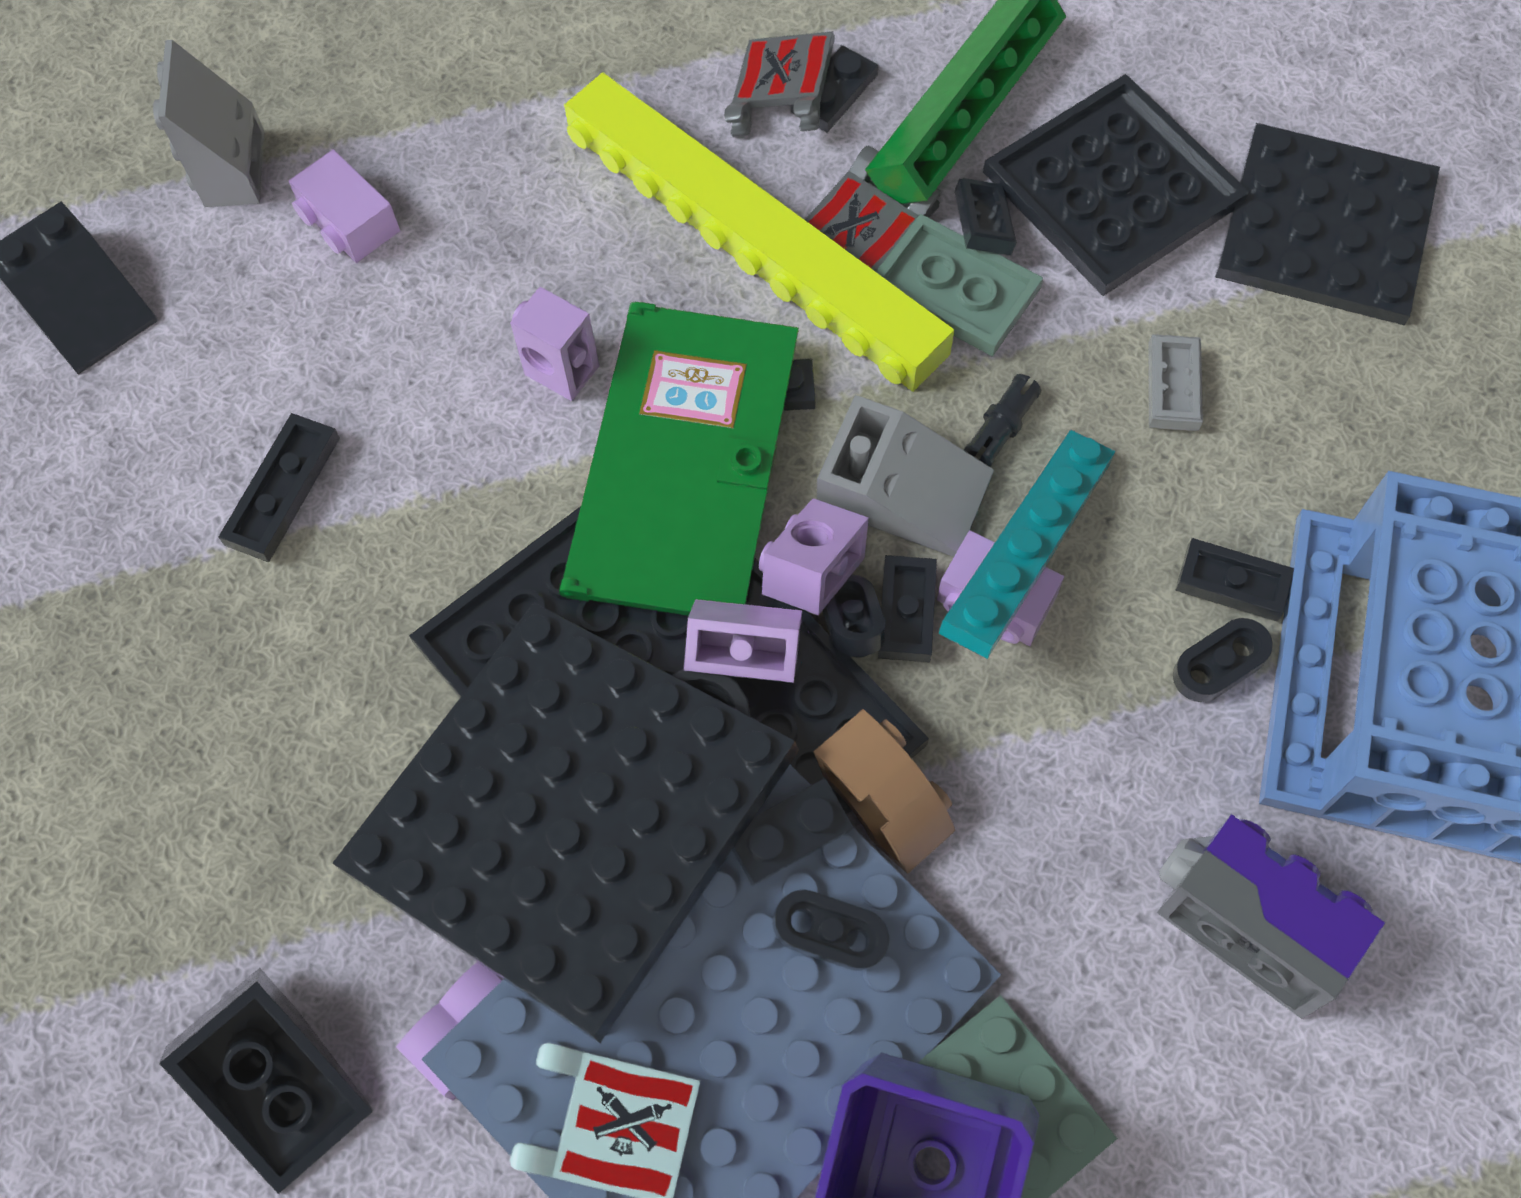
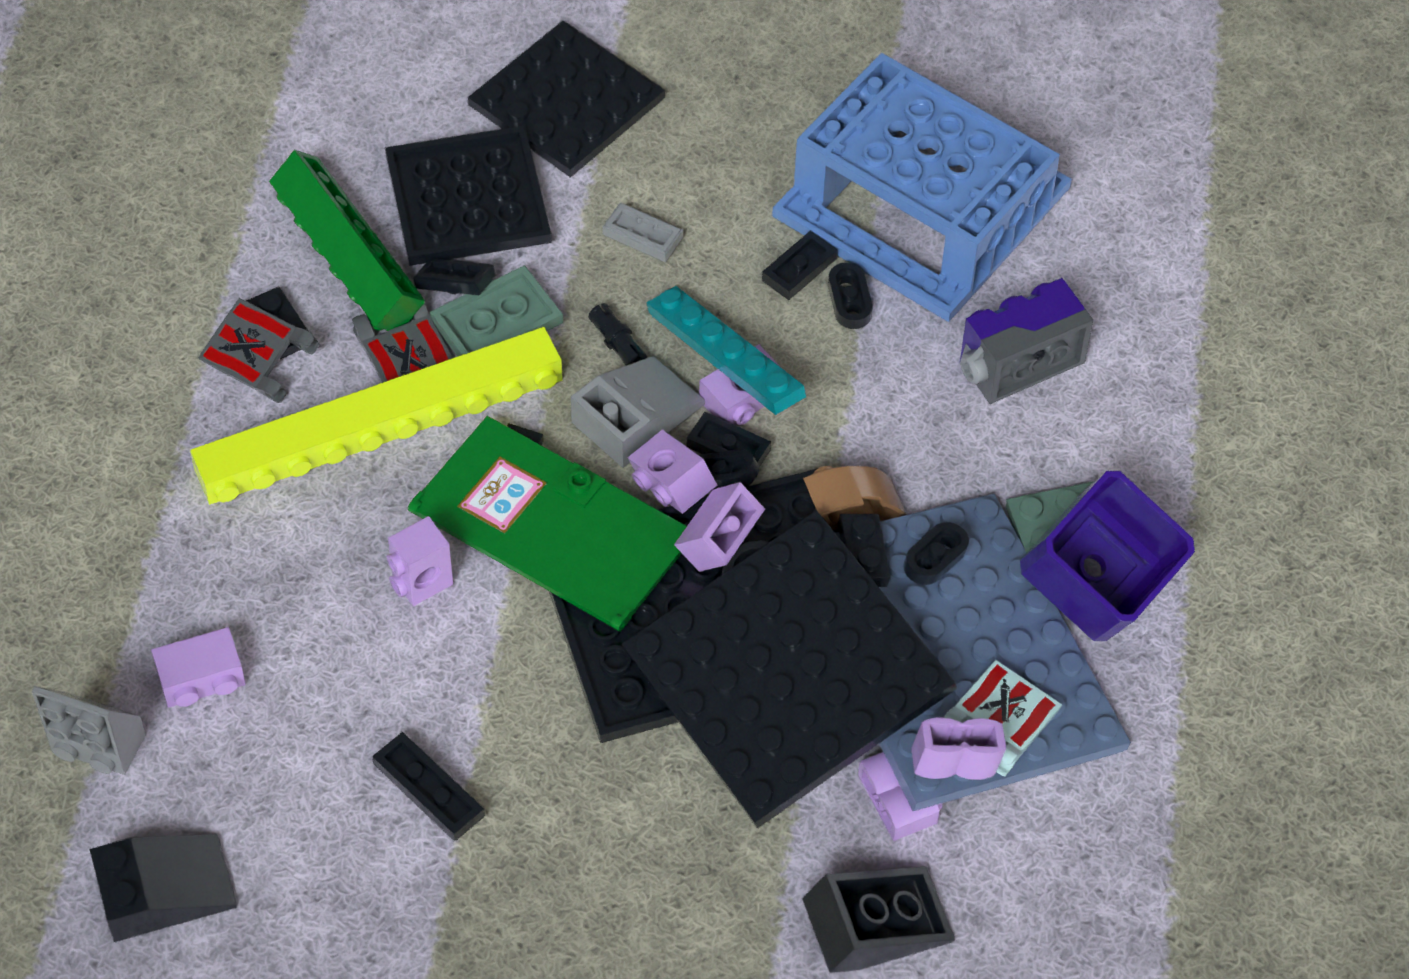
camera: 70 degrees left, 10 degrees down
(485, 1066) = (958, 748): none -> lavender brick

